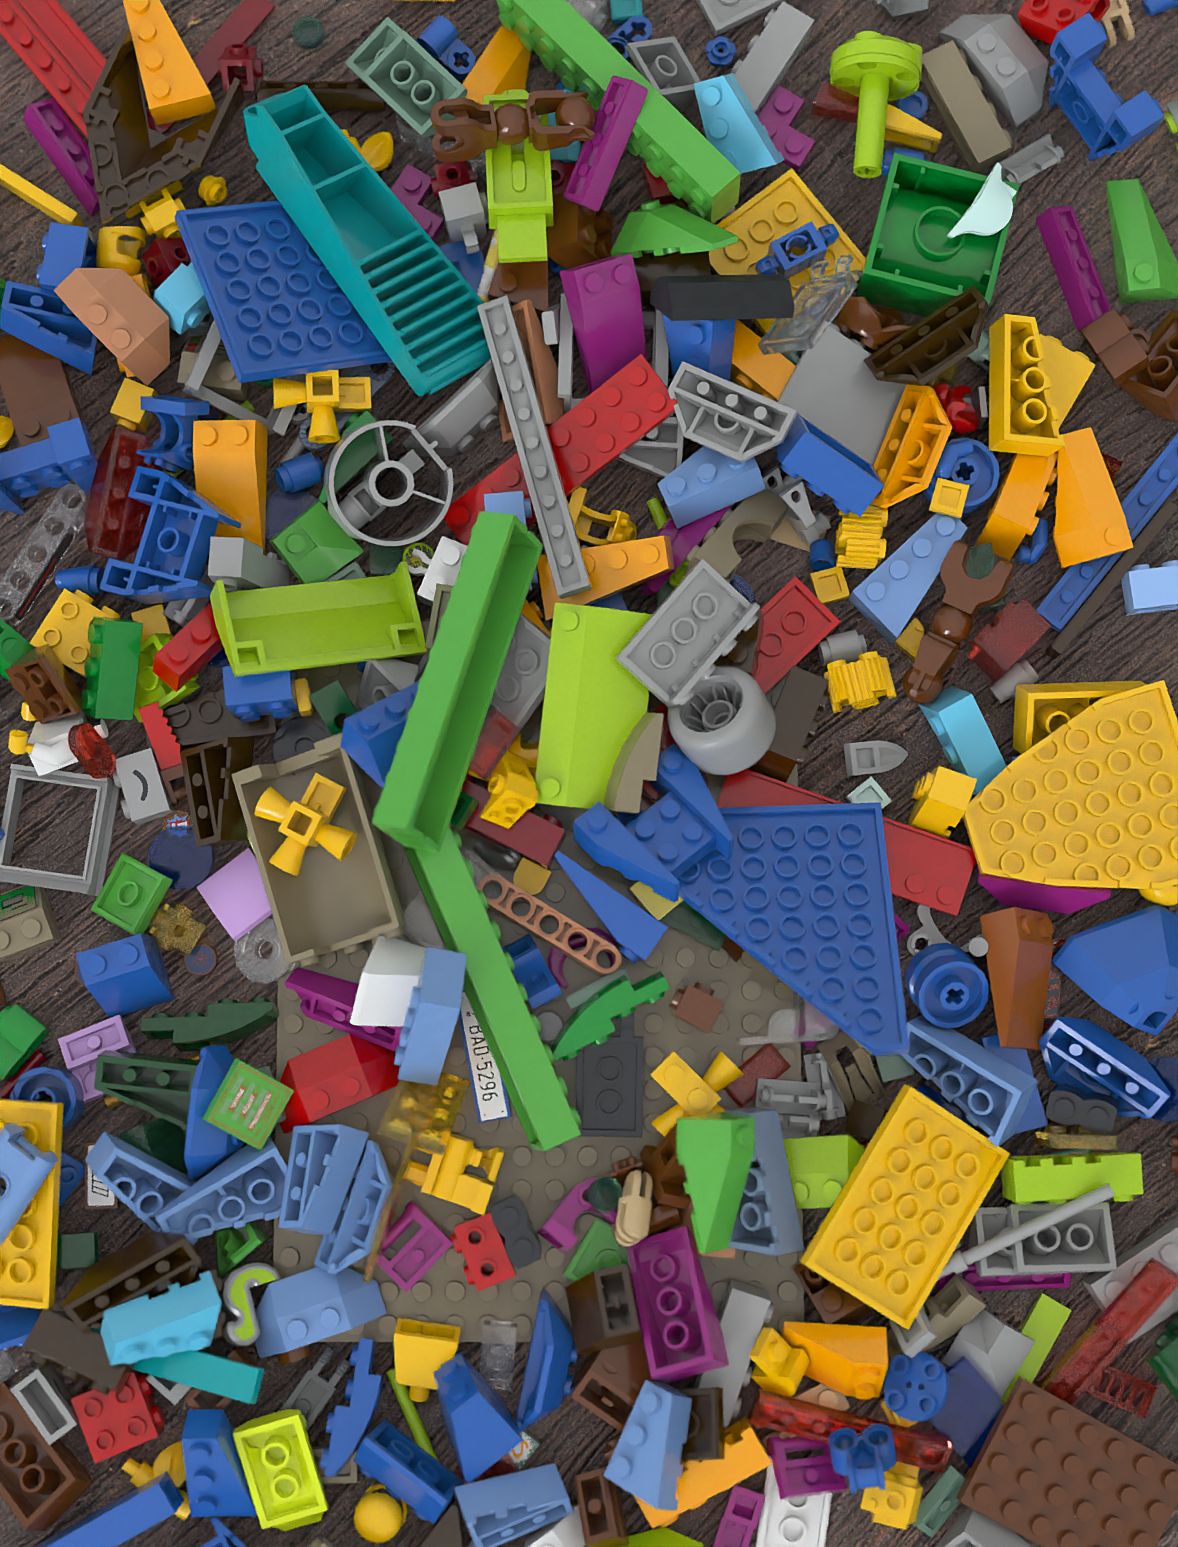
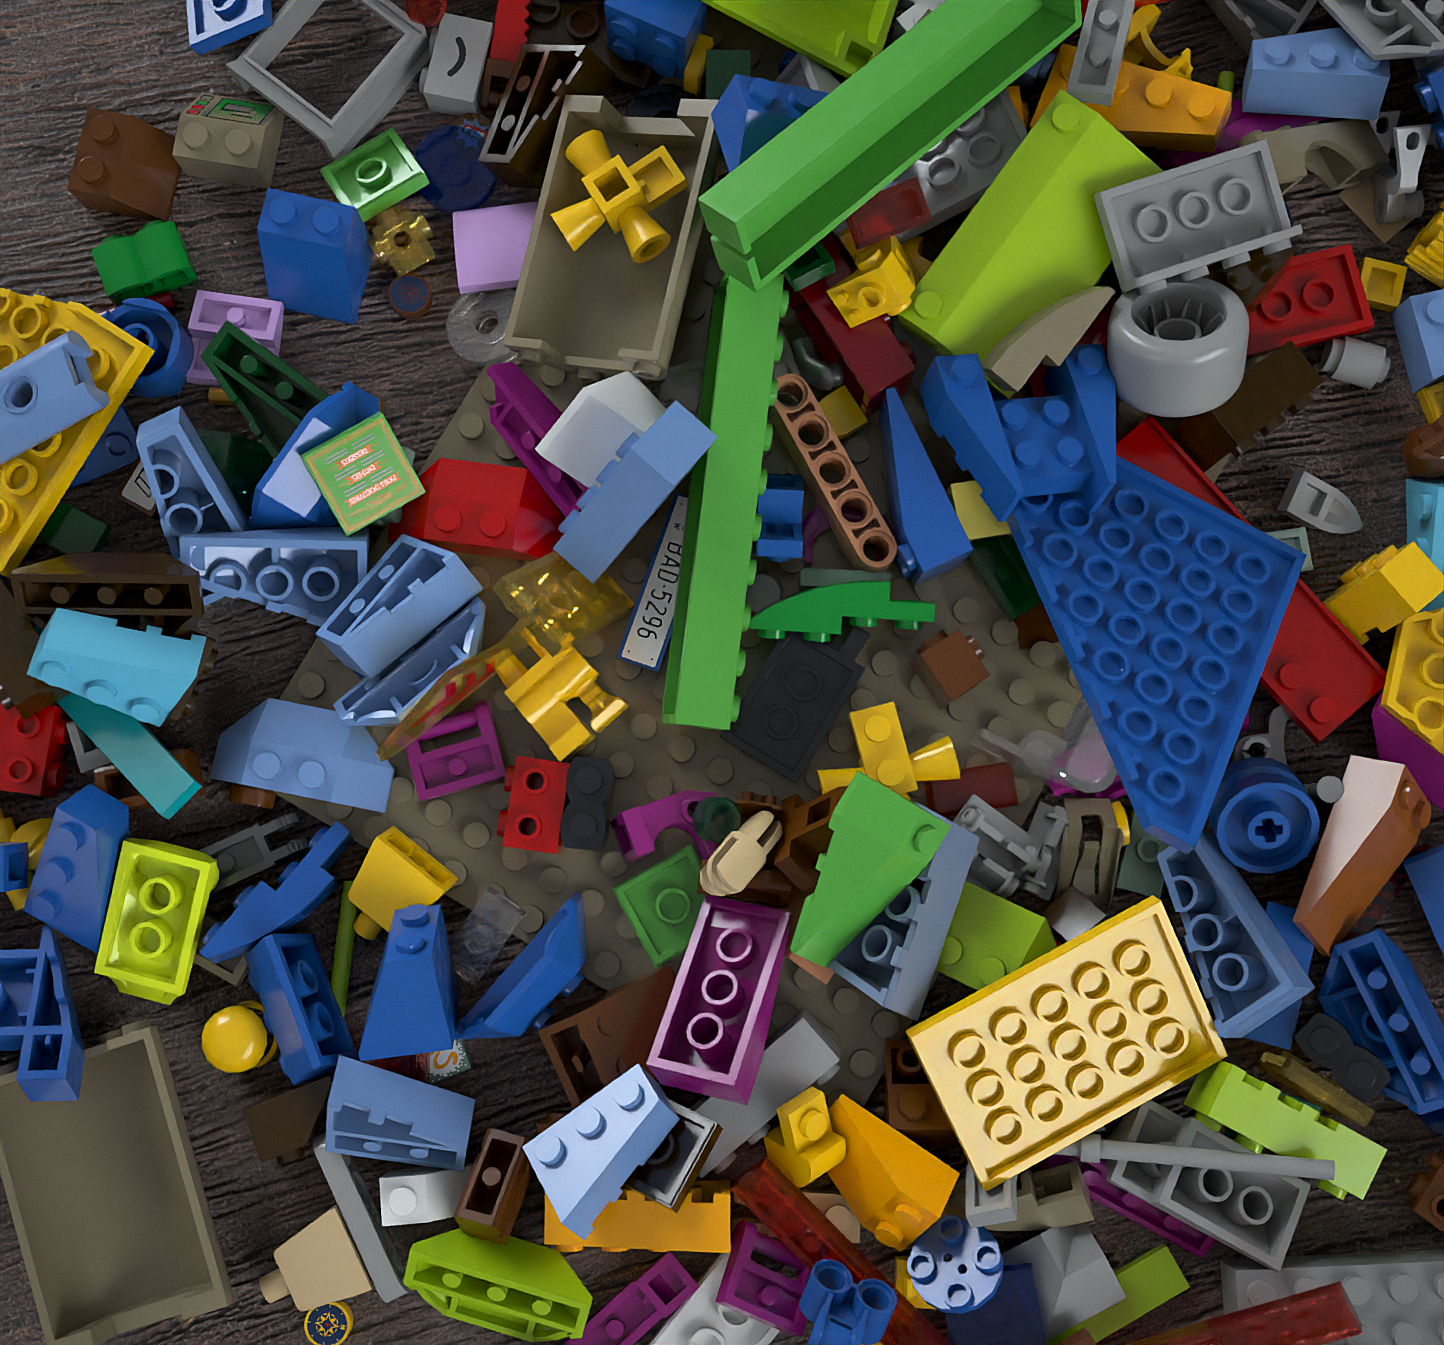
camera: 30 degrees right, 0 degrees up
(224, 1023) = (393, 376): dark green slope -> none
(236, 1244) = (262, 636): bright green slope -> none
(238, 1303) = (220, 698): light grey animal -> none
(604, 1310) = (637, 954): dark brown slope -> none
(822, 550) = (1395, 236): blue piece -> none
(859, 682) = (1357, 406): yellow brick -> none

